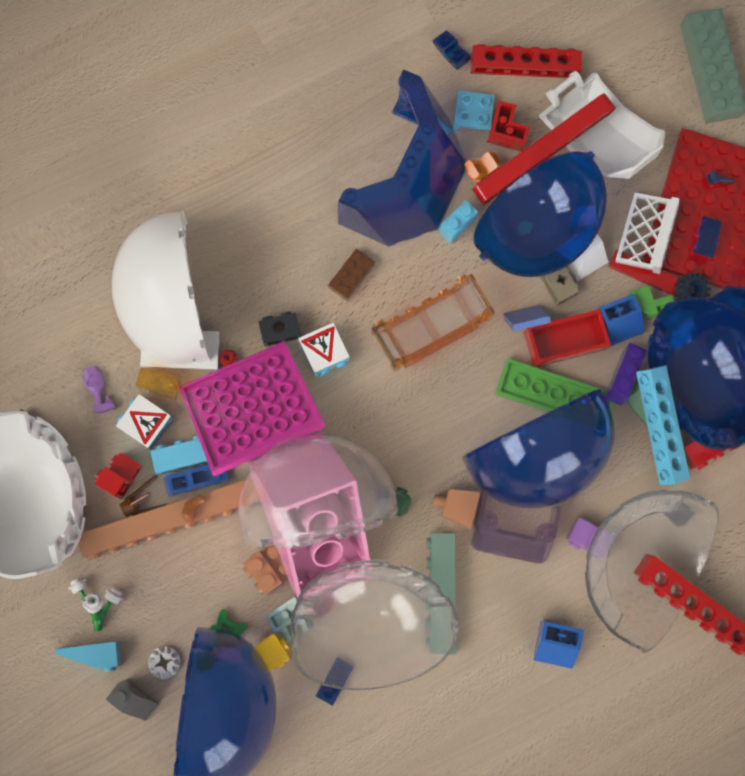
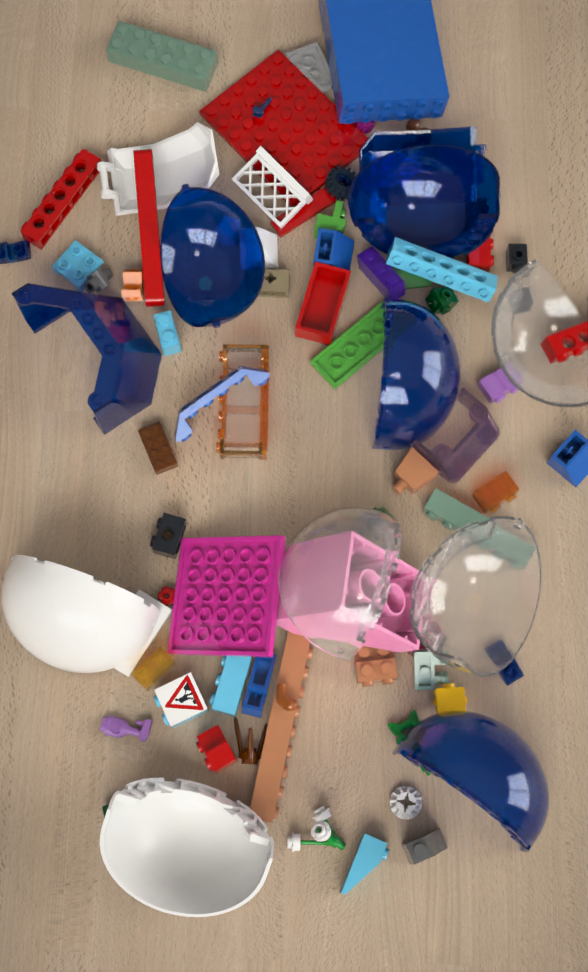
camera: 50 degrees left, 5 degrees down
(324, 350) = (211, 508): piece -> none
(461, 318) = (183, 429): none -> slope
(469, 135) = (98, 280): none -> dark grey axle
(484, 589) = (496, 492): none -> clear orange brick
(504, 131) = (112, 249): red brick -> none
(526, 318) = (286, 324): blue tile -> none
(635, 441) = (441, 300): none -> dark green brick
(708, 237) = (304, 142): clear blue slope -> none
(719, 487) = (516, 257): none -> black brick

